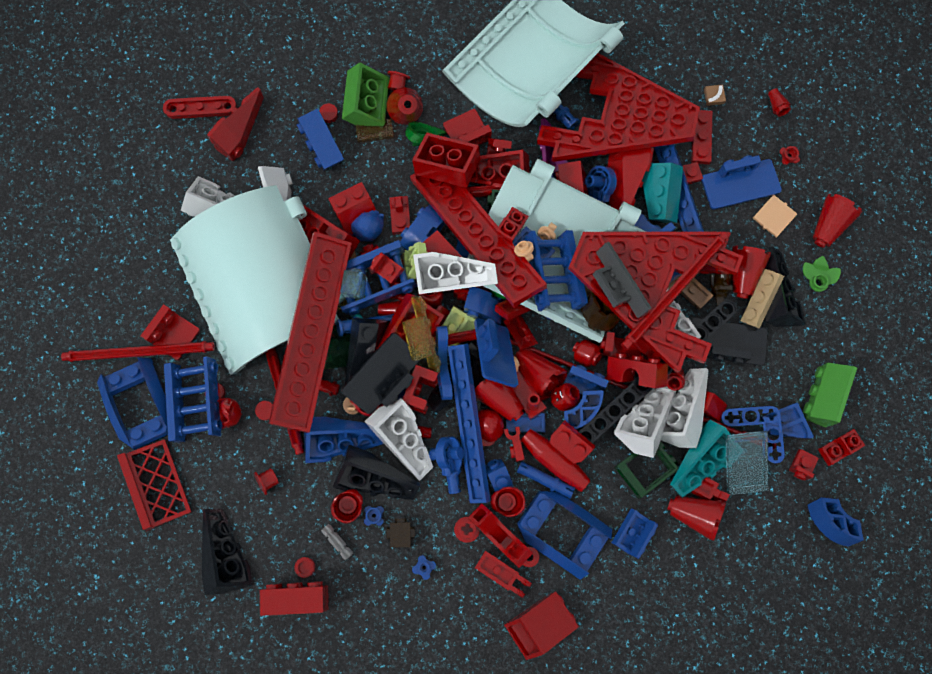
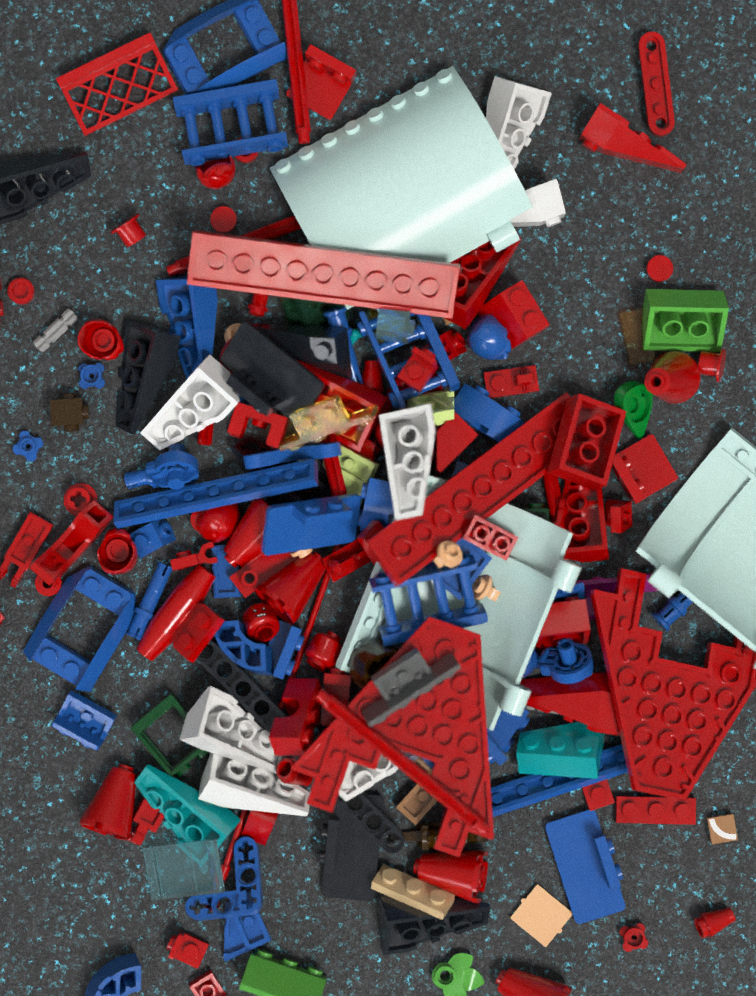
camera: 85 degrees right, 10 degrees up
(319, 140) = (612, 259): blue wedge -> none

